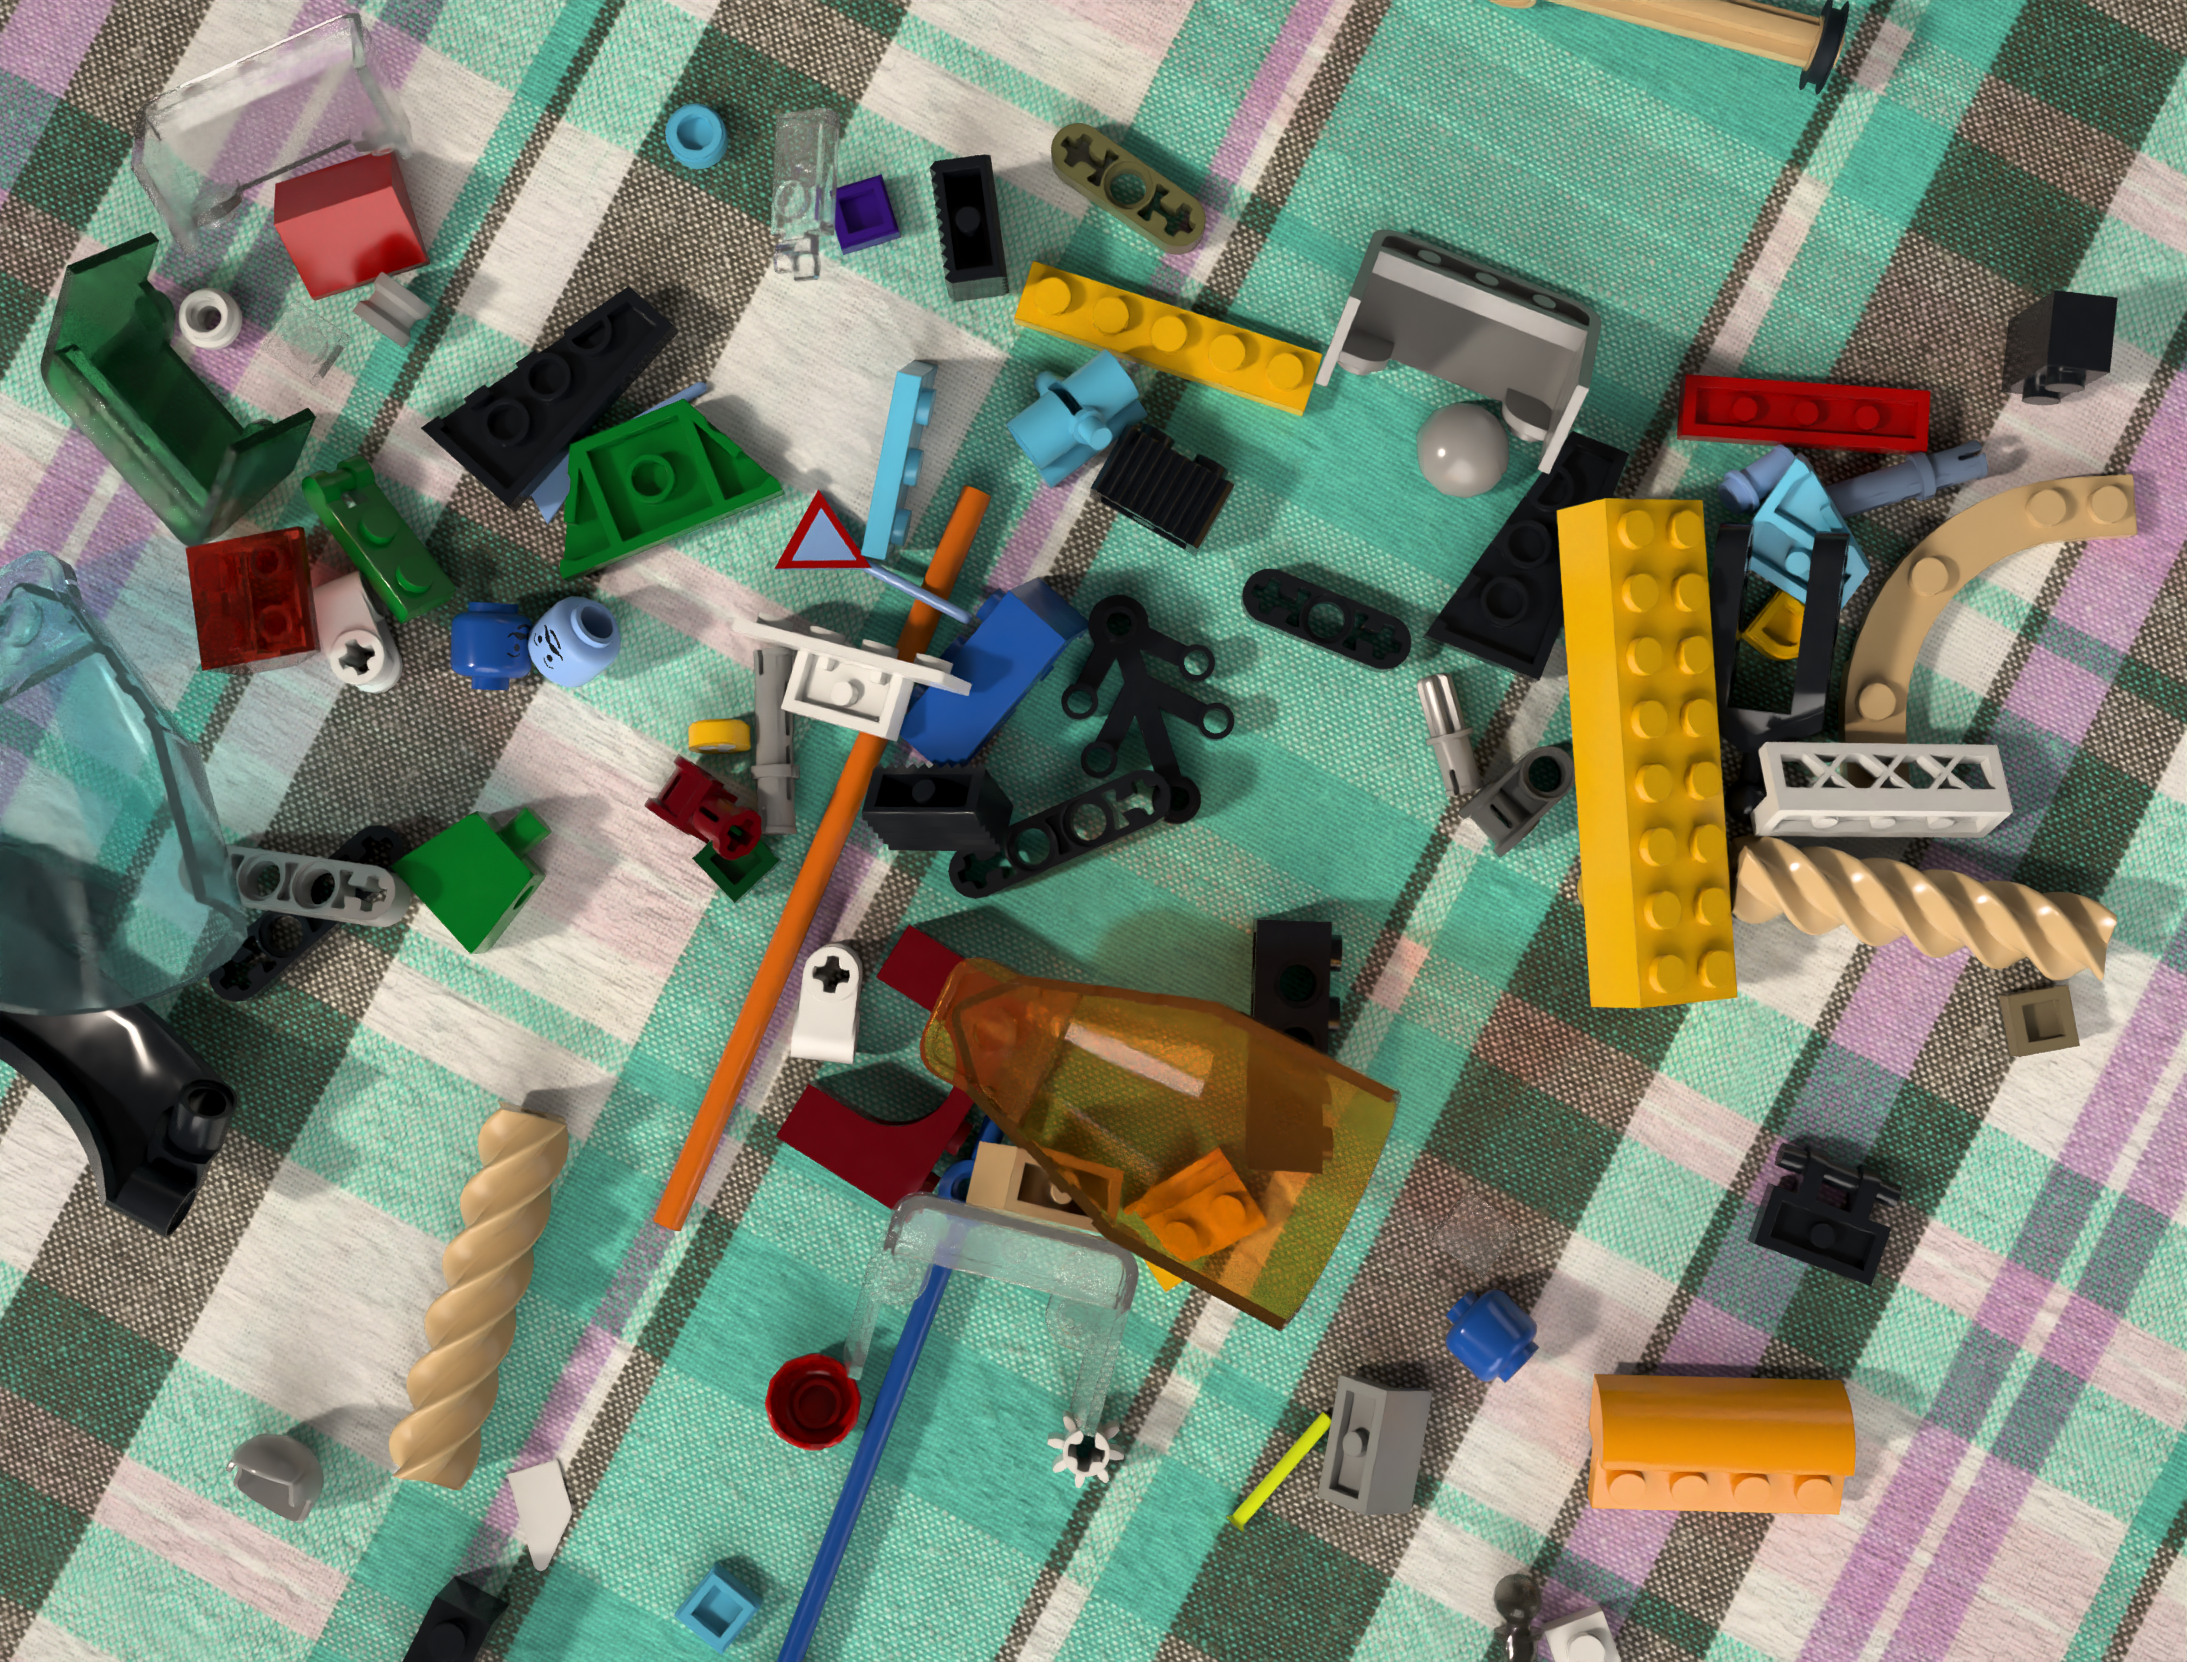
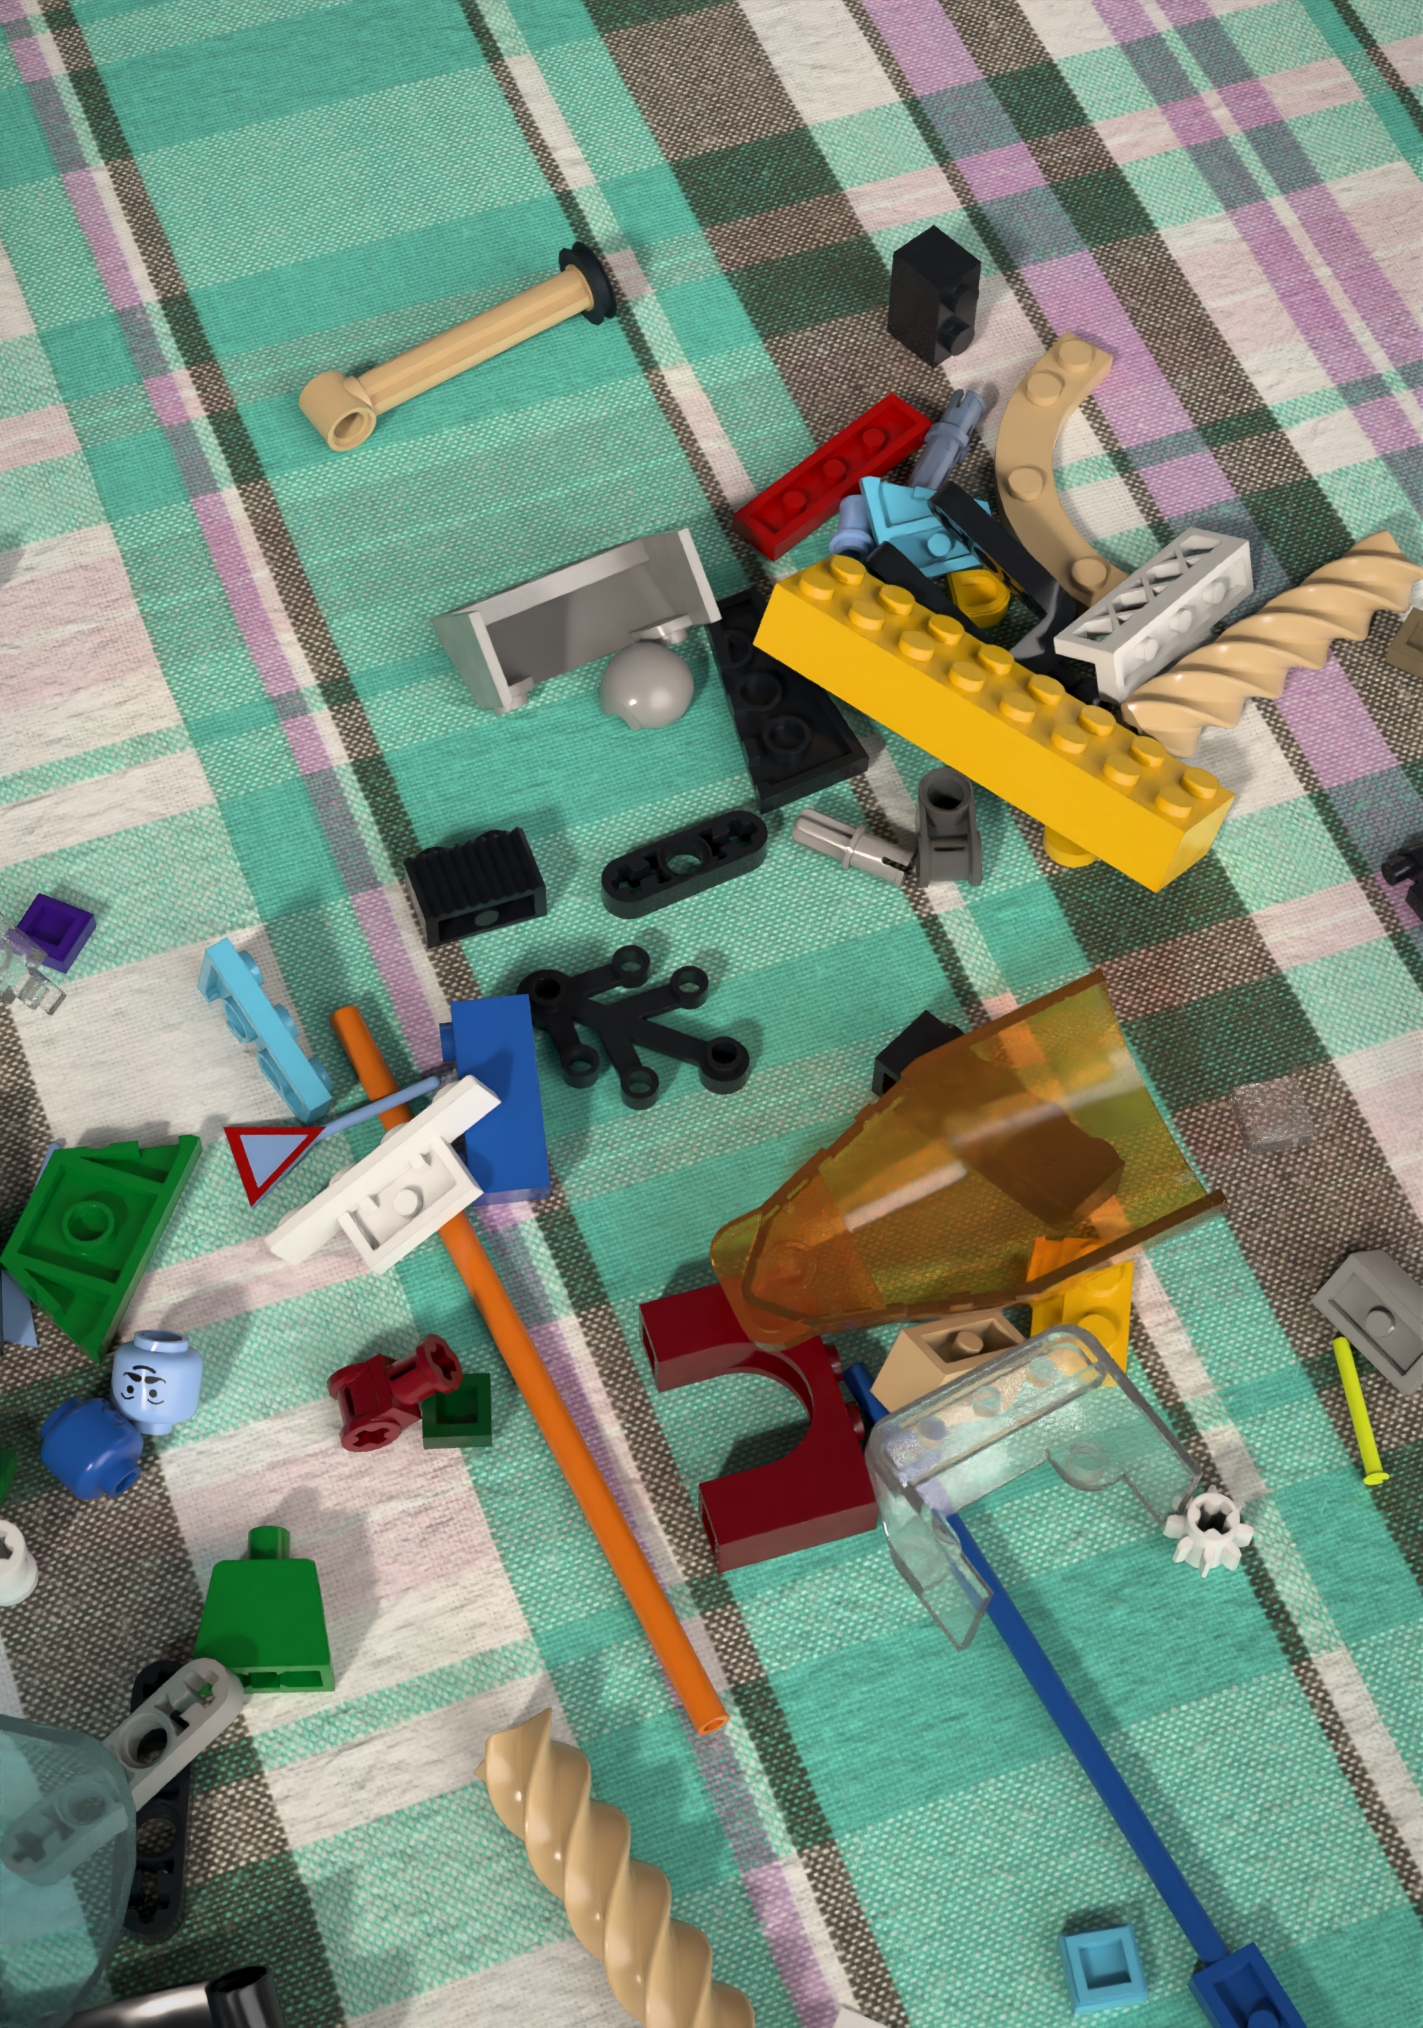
camera: 50 degrees left, 30 degrees down
(719, 736) = (344, 1340): yellow tile -> none
(774, 732) = (382, 1301): light grey pin -> none
(812, 1402) = (979, 1716): red hair -> none
(828, 1016) = (651, 1442): white piece -> none
(937, 808) = (565, 1208): black brick -> none
(969, 228) = (147, 854): black brick -> none
(1063, 839) = (667, 1152): black beam -> none
(1076, 416) = (360, 897): medium azure pin -> none
(1082, 175) = (214, 770): olive beam -> none
(1167, 338) = (363, 809): yellow plate -> none
(1491, 1335) = (1368, 1161): blue head -> none

